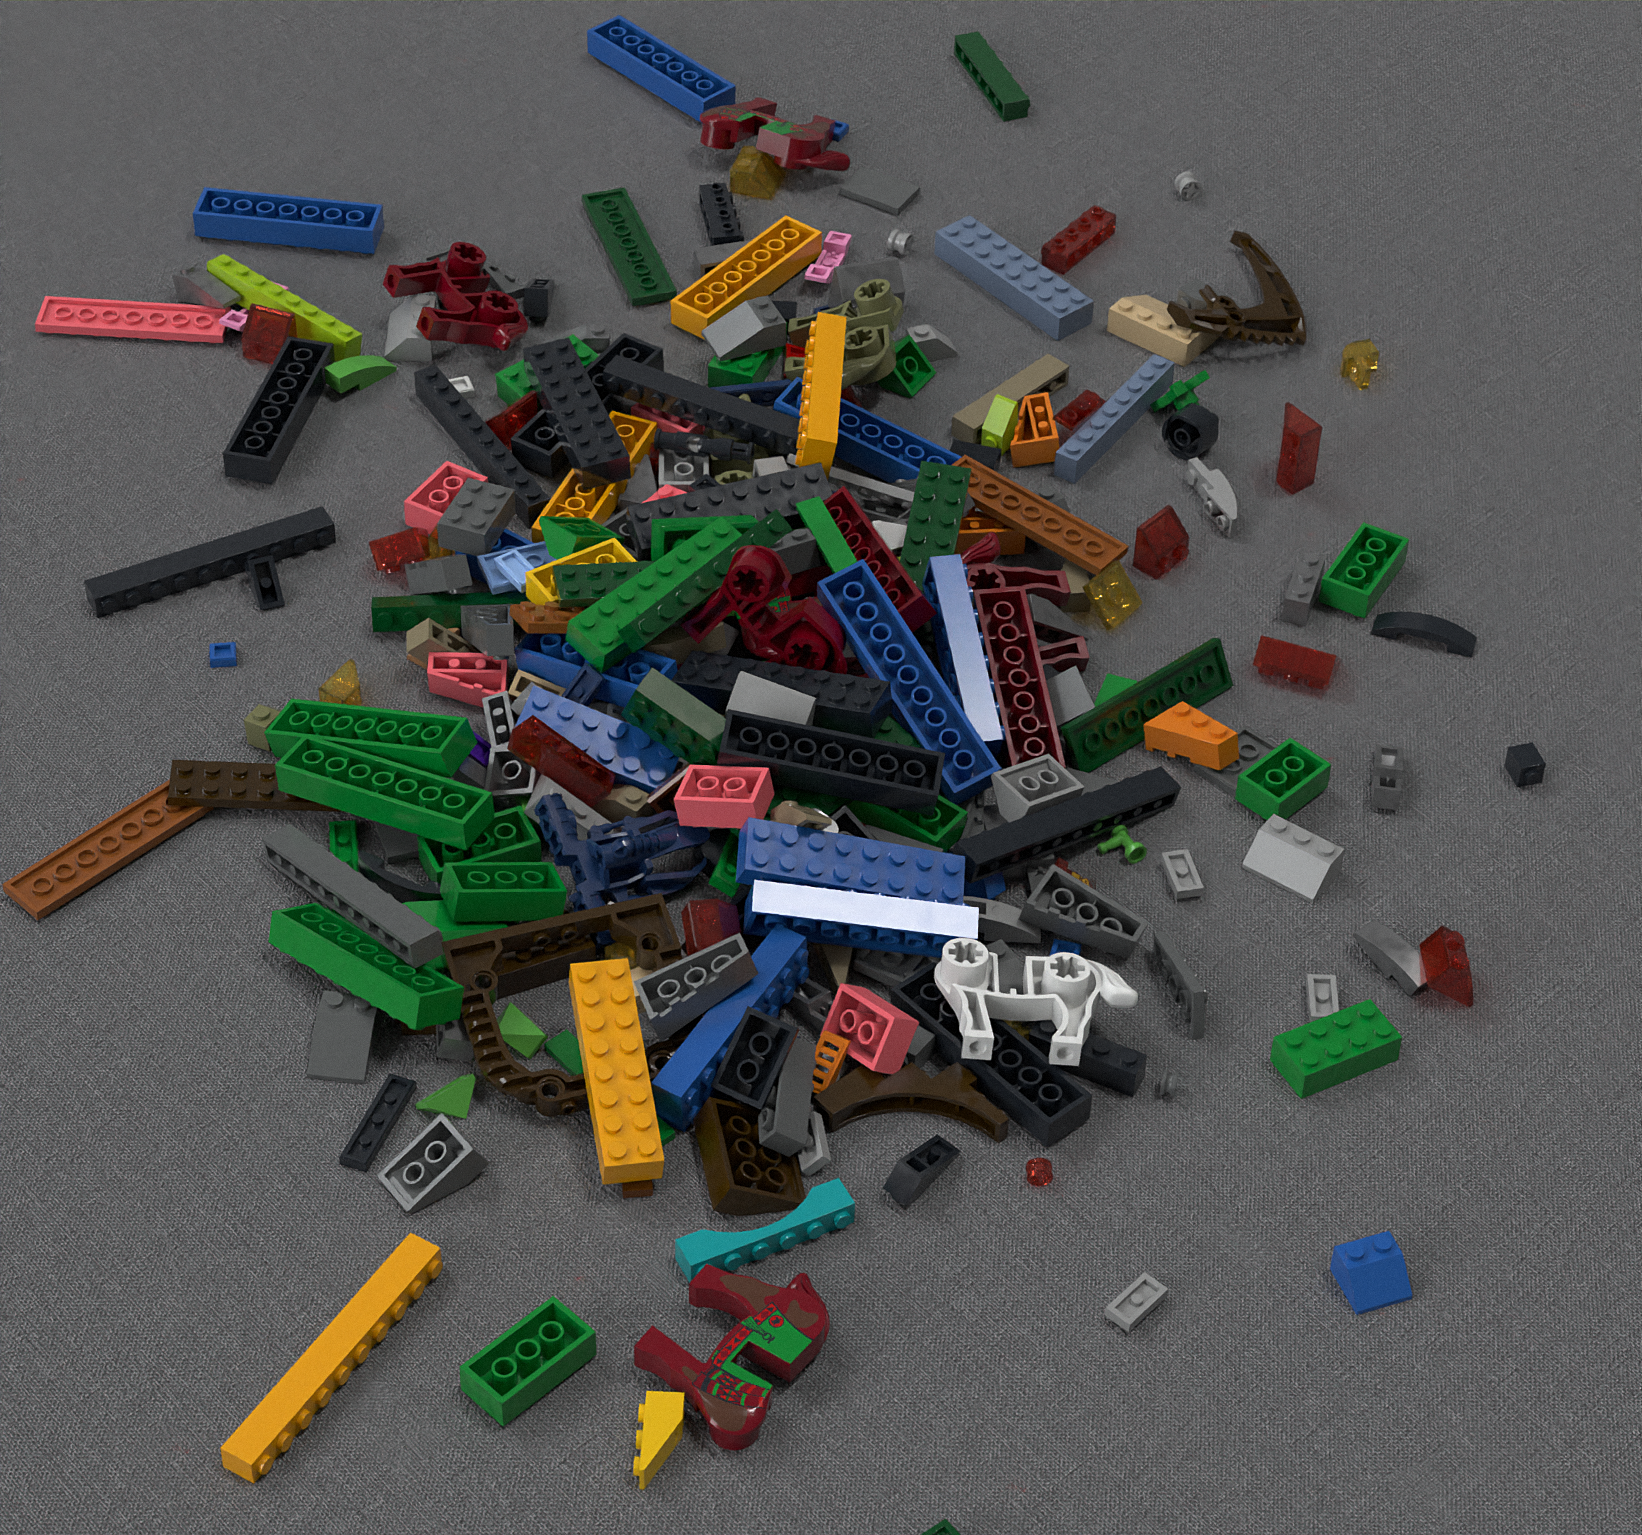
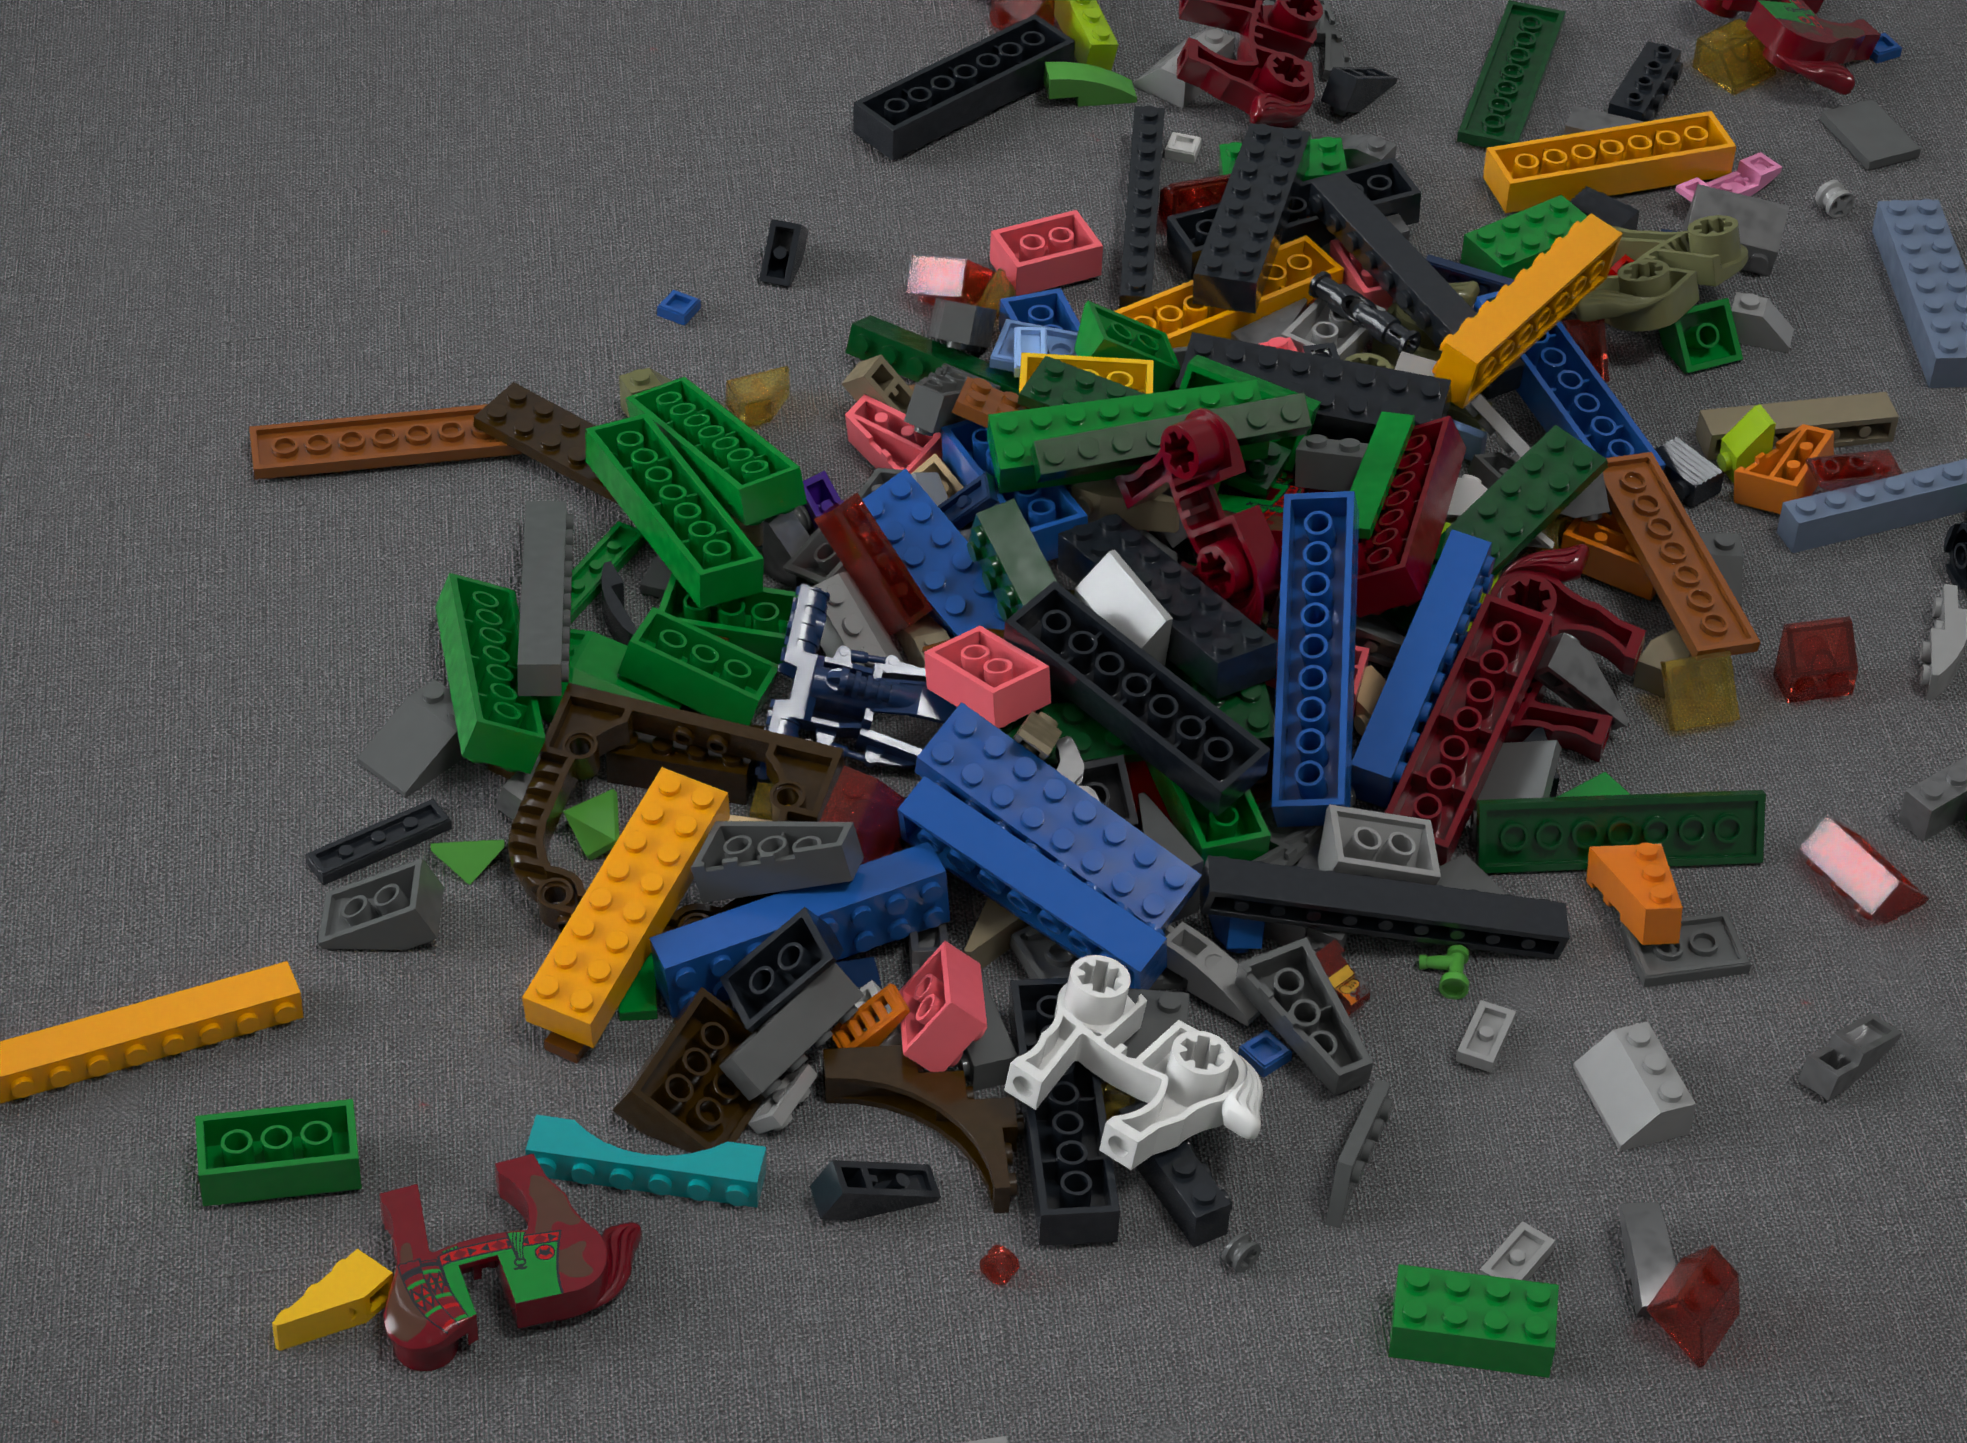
camera: 35 degrees right, 0 degrees up
(208, 561) = (750, 208): black brick -> none
(476, 517) = (1040, 278): dark grey brick -> none
(746, 330) = (1532, 211): dark grey slope -> none
(1283, 780) = (1704, 994): green brick -> none

